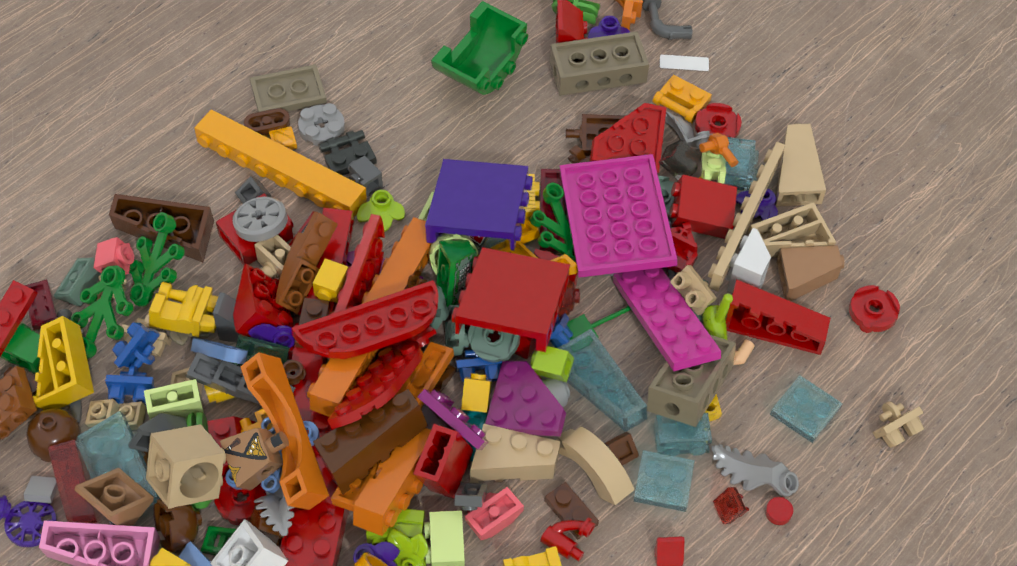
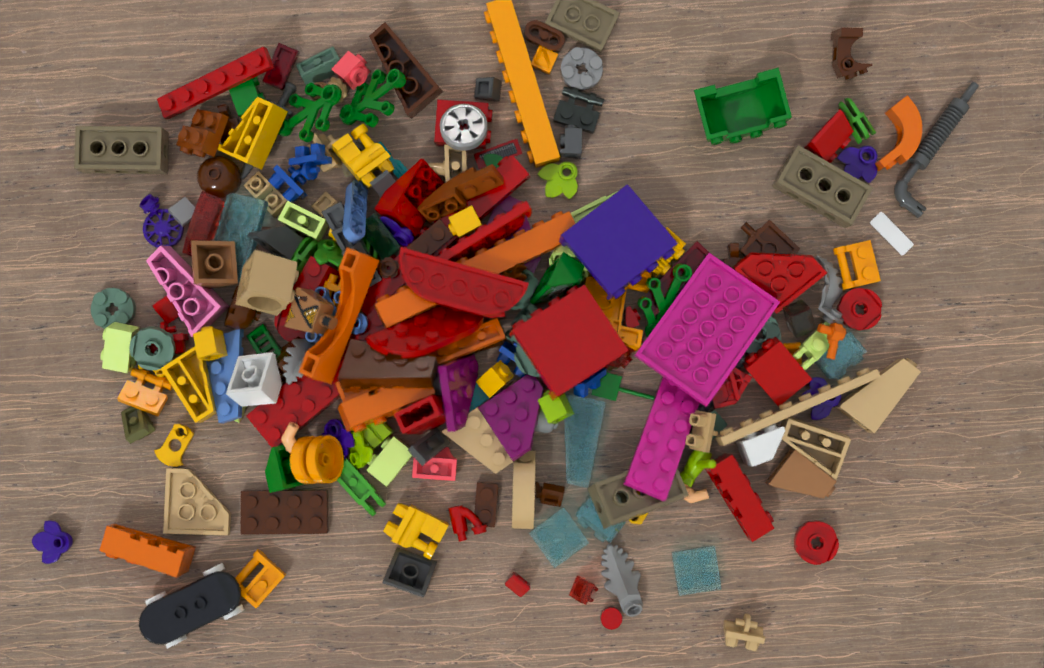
camera: 45 degrees right, 30 degrees up
(219, 411) = (328, 251): none -> bright green plate

